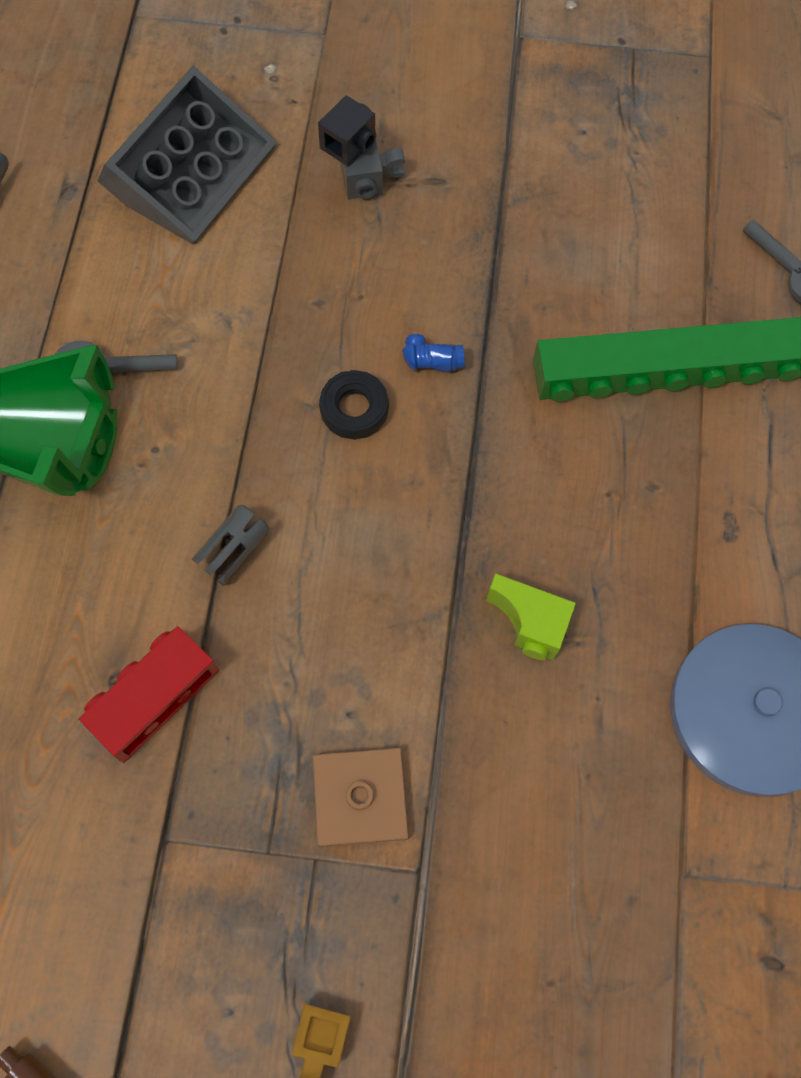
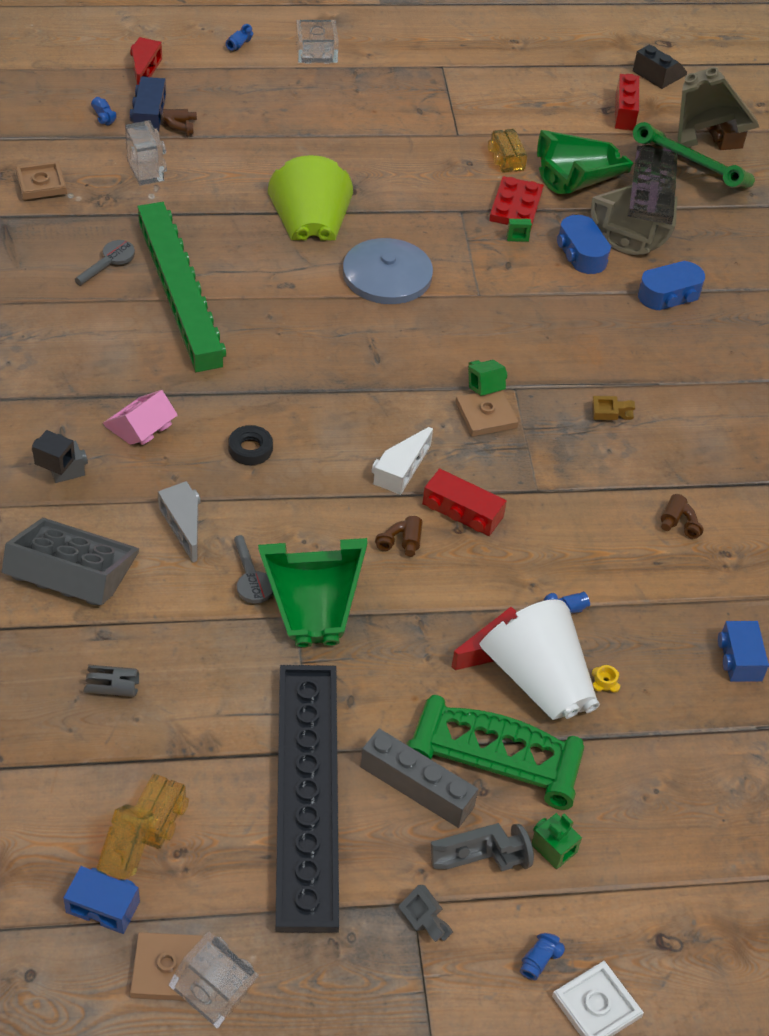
camera: 105 degrees left, 20 degrees down
(110, 597) = (411, 538): none -> reddish brown plant
(224, 292) = (180, 510): none -> light grey slope
(234, 532) = (361, 482): dark grey arm -> none
(253, 606) = (401, 461): none -> white slope
(427, 264) = (142, 418): none -> bright pink slope
(430, 810) = (486, 376): none -> green brick
(435, 356) = (208, 408): blue arm -> none
(536, 615) = (368, 350): lime arch -> none

